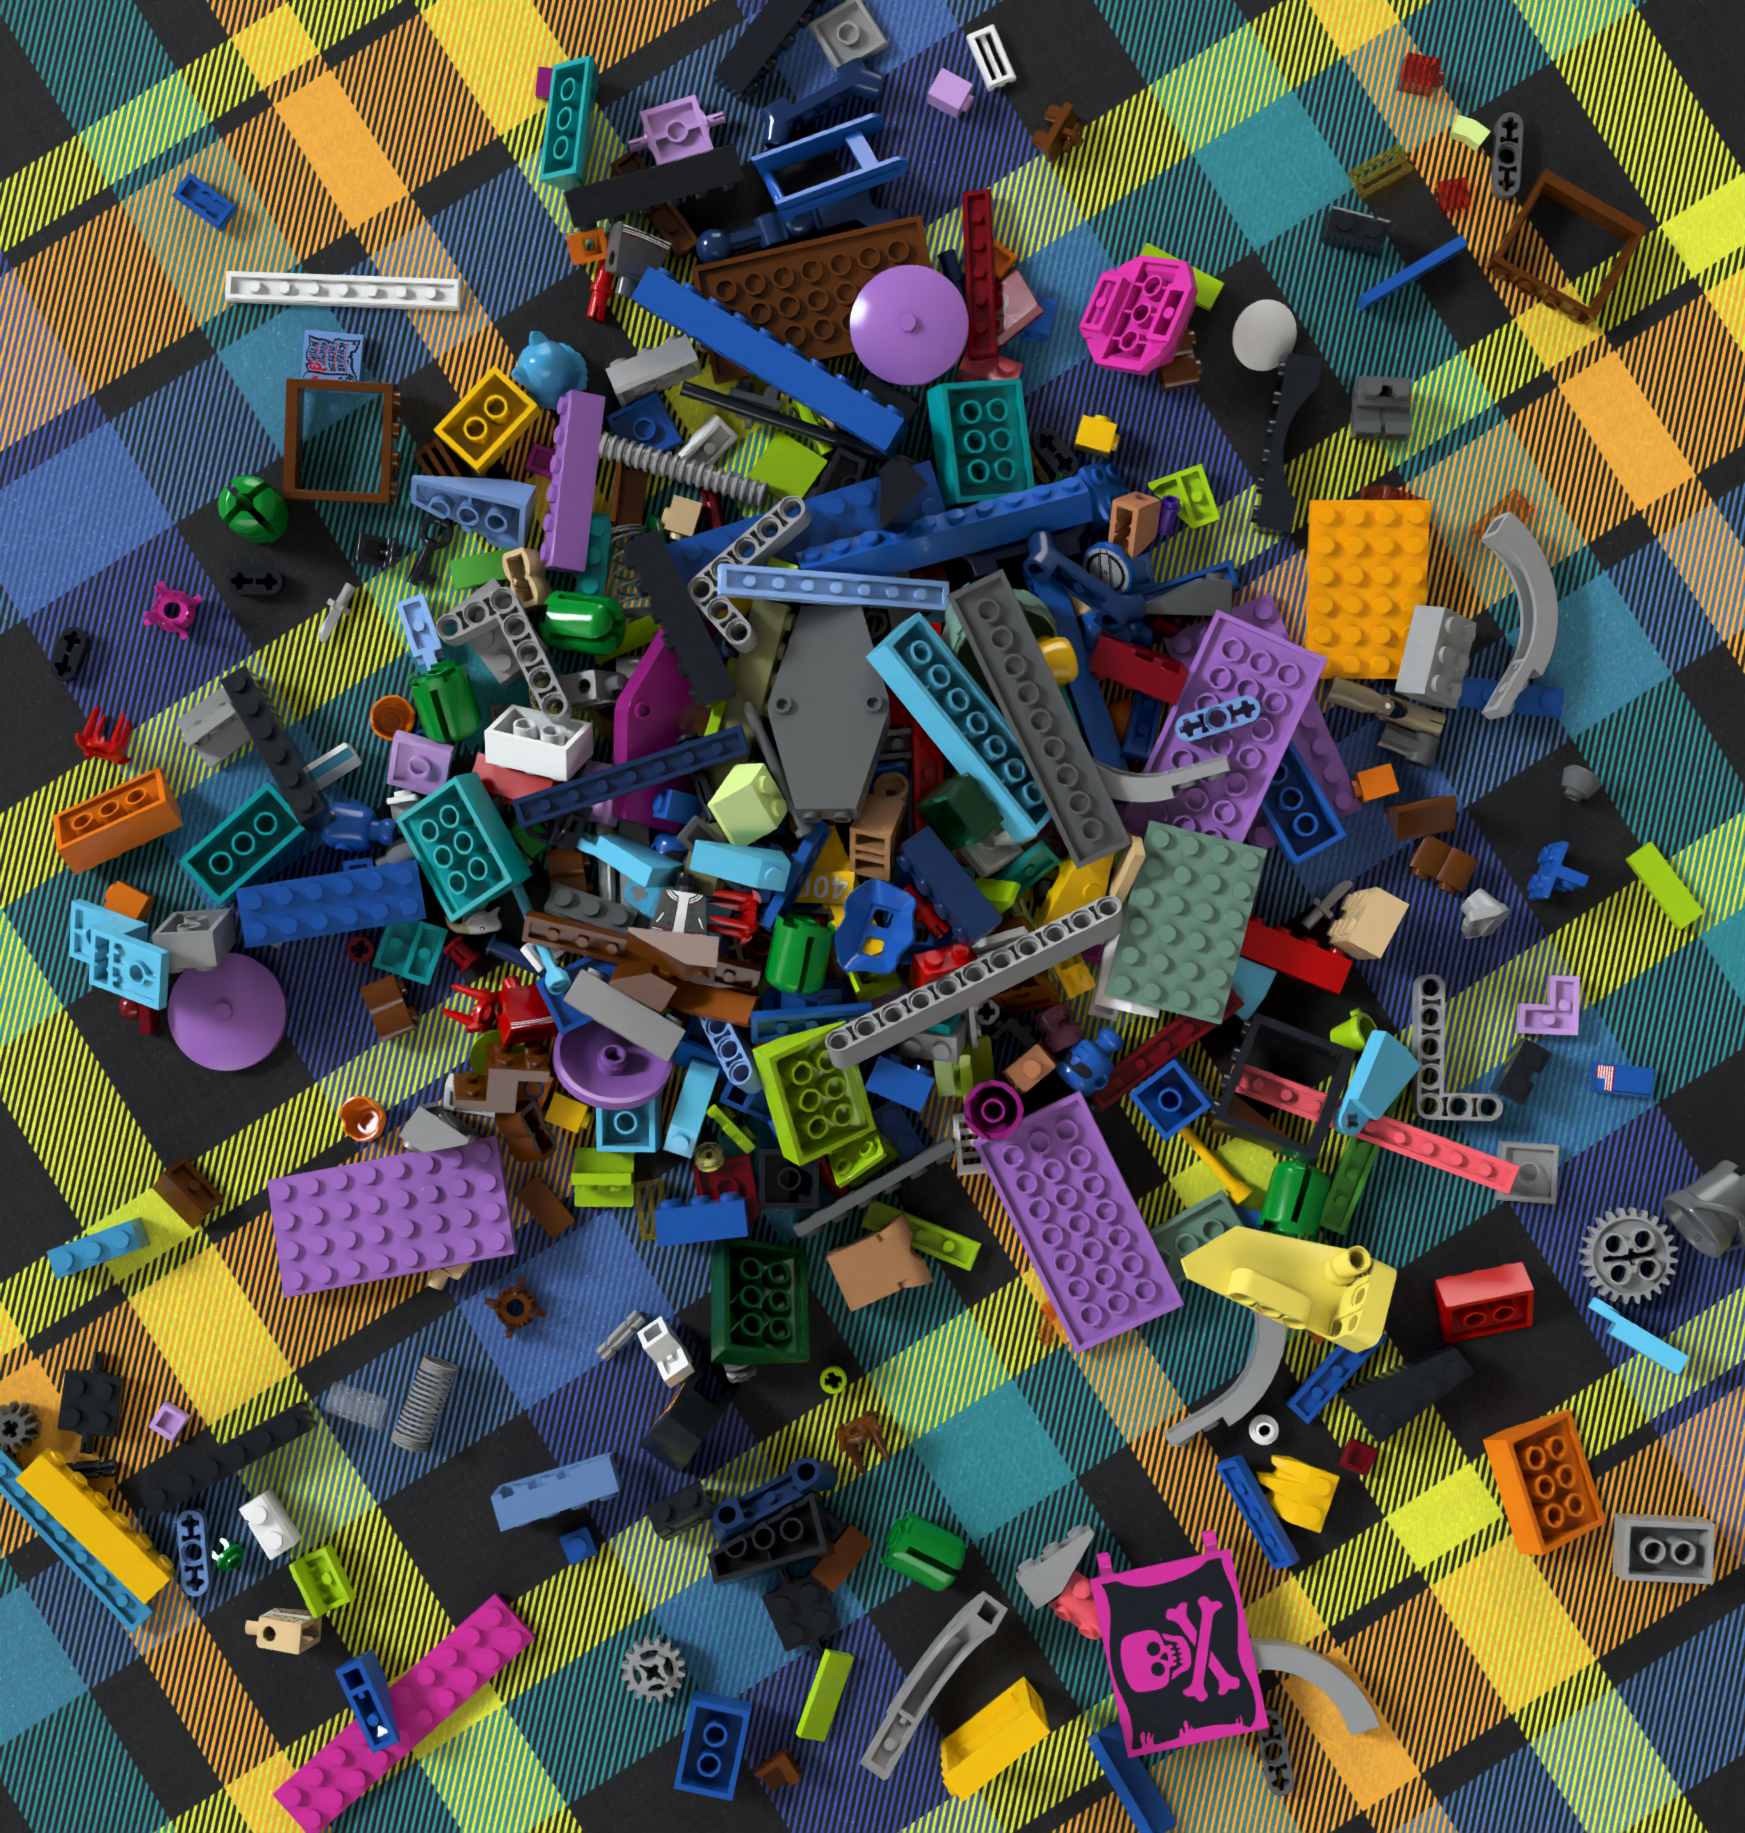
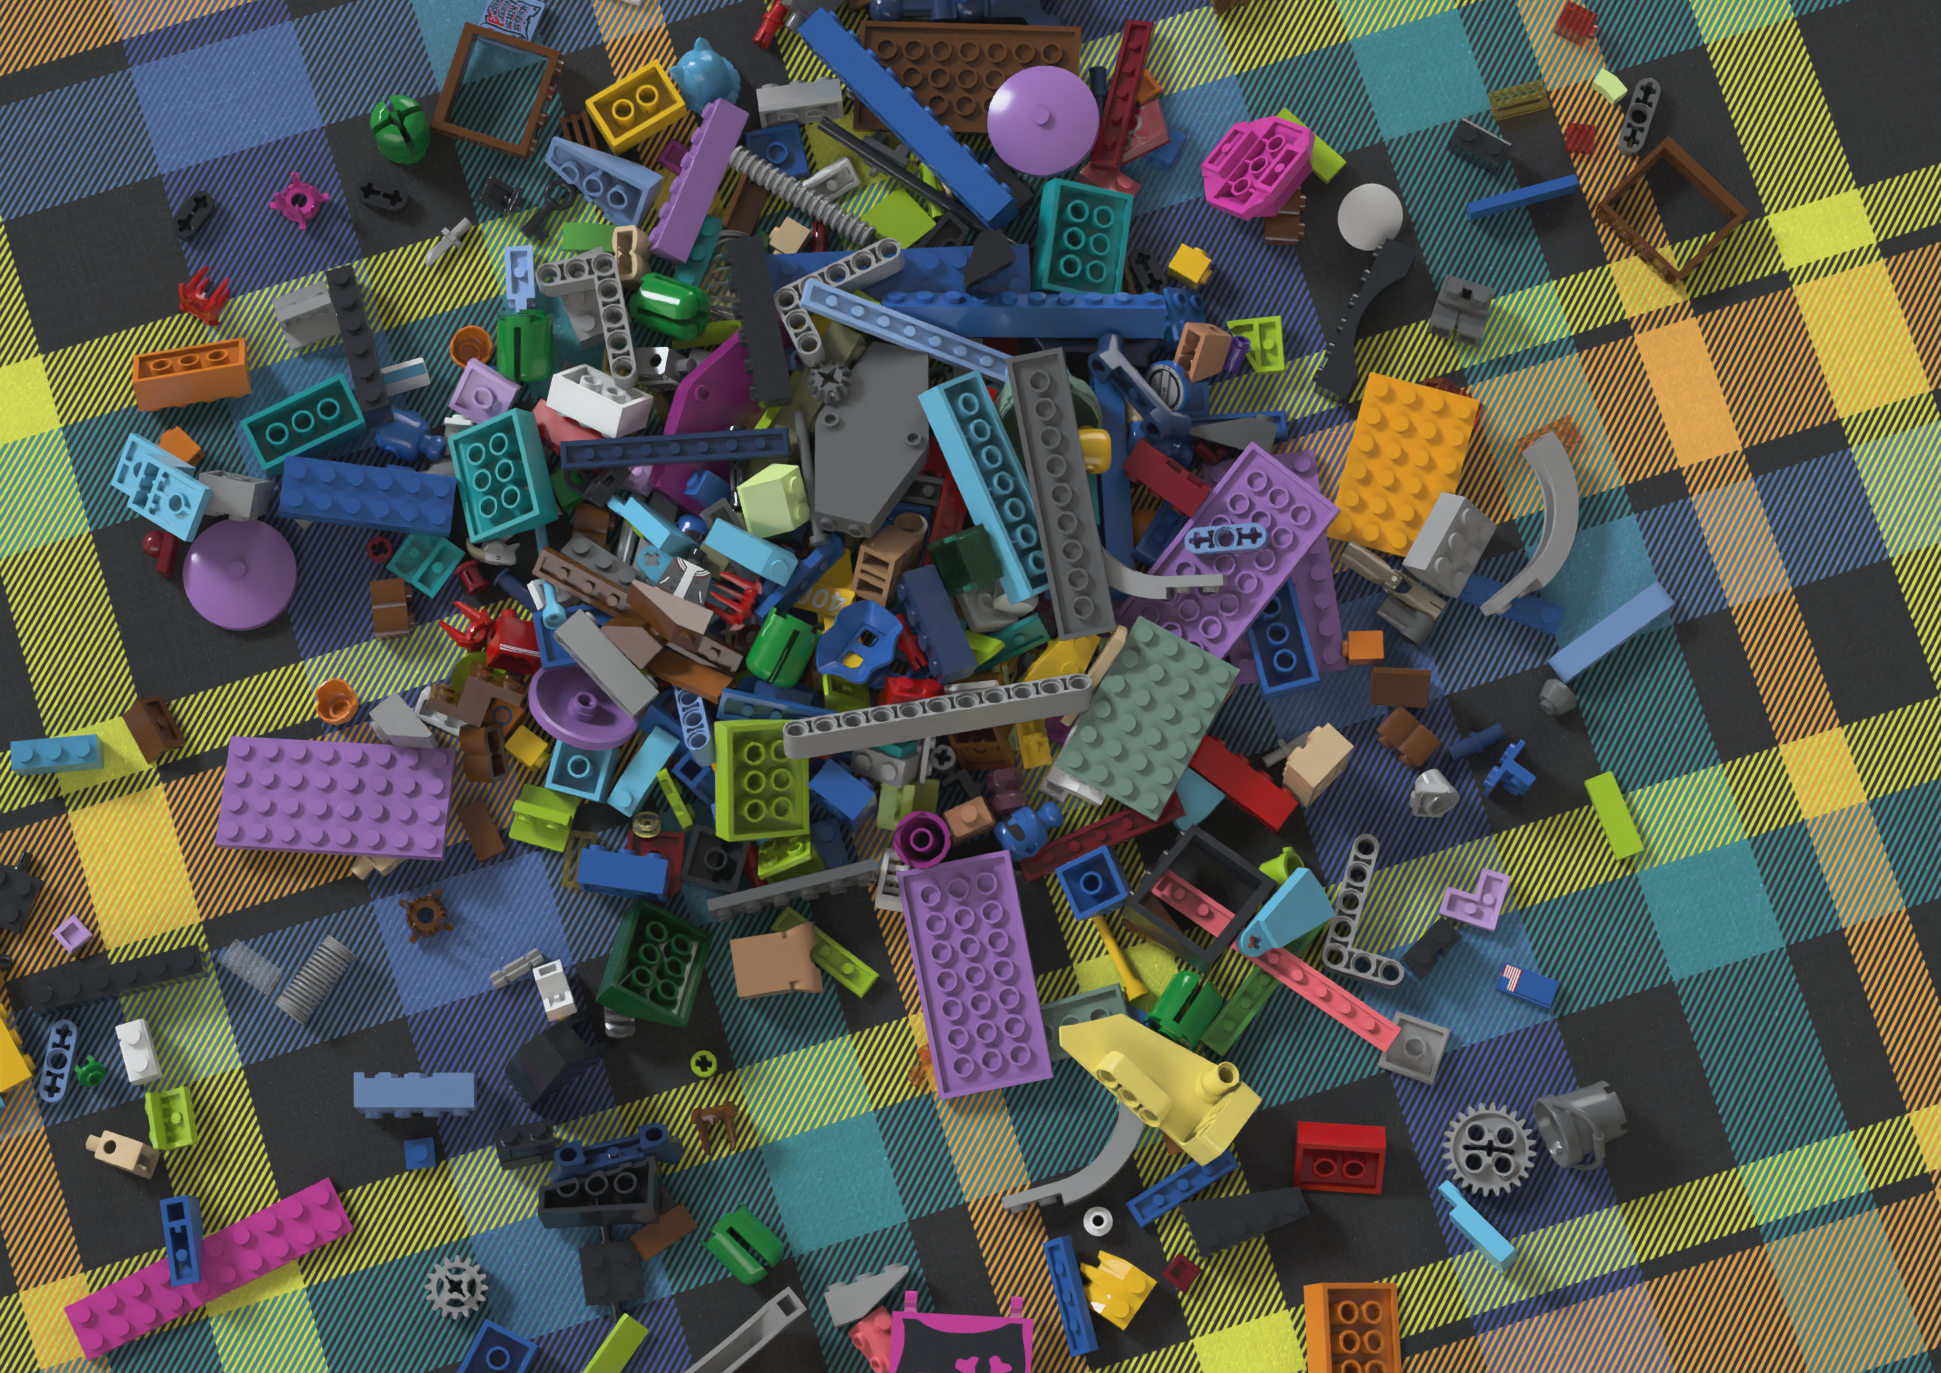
camera: 20 degrees right, 10 degrees down
(775, 674) = (831, 392): none -> dark grey gear
(1510, 849) = (1476, 742): none -> dark blue pin
(1616, 700) = (1611, 632): none -> medium blue beam

